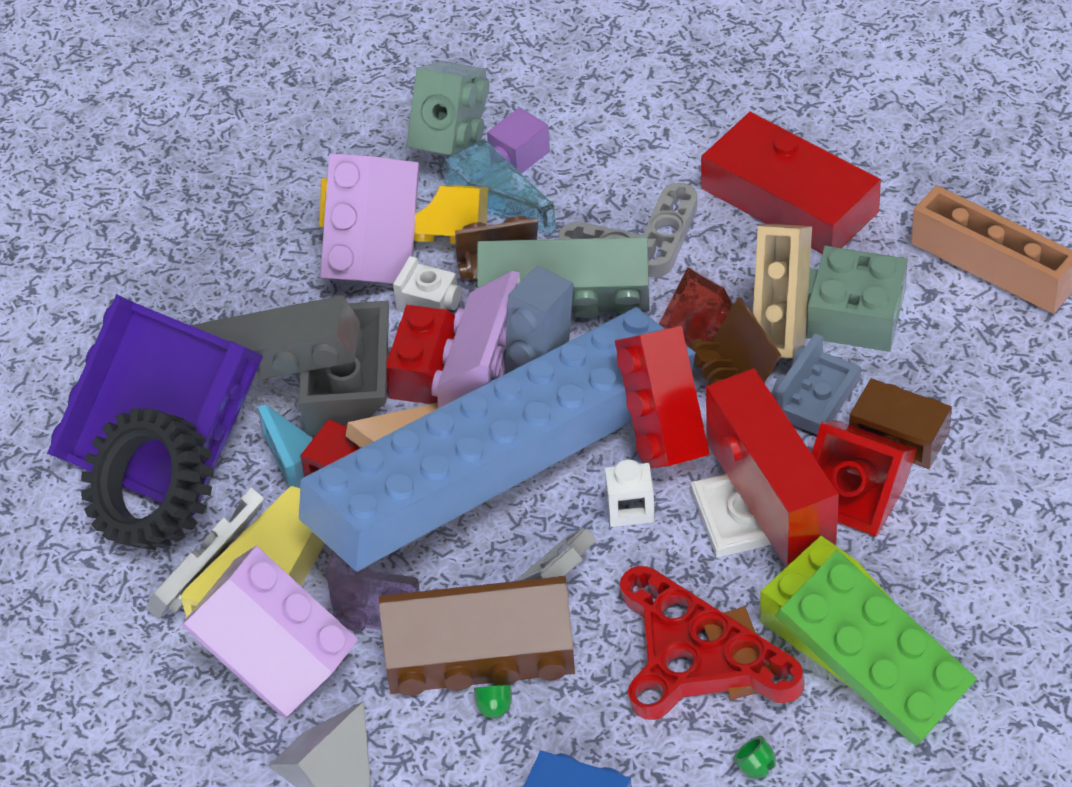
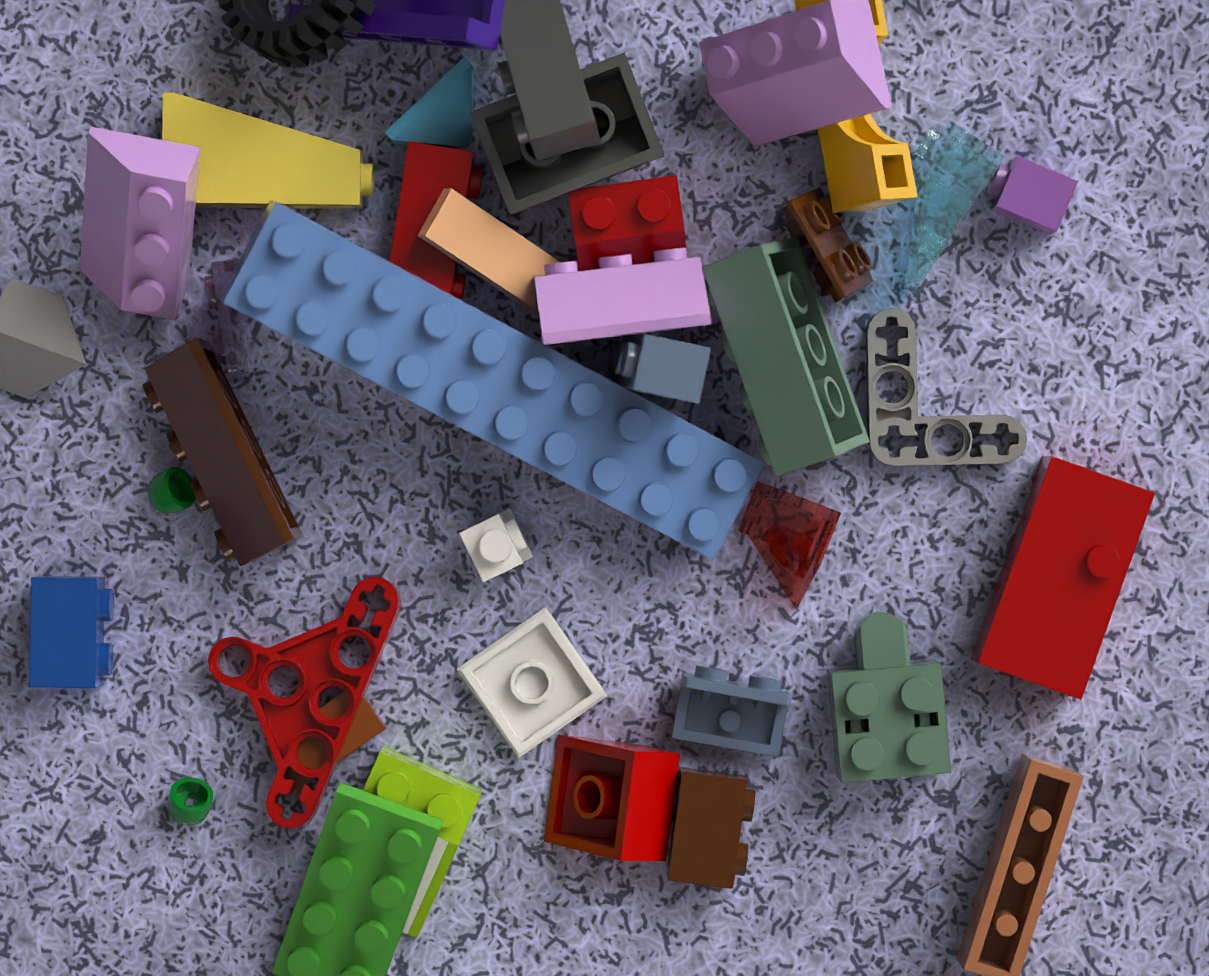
camera: 65 degrees right, 40 degrees up
(221, 537) = (241, 90): wing -> none
(426, 287) = (737, 157): white brick -> none
(447, 107) = (1031, 94): sand green brick -> none
(561, 557) = (354, 497): light grey tile -> none
(662, 397) = (613, 549): red brick -> none
(736, 348) = (732, 611): reddish brown hinge -> none
(770, 465) = (551, 711): red brick -> none
(782, 284) = (832, 638): tan brick -> none

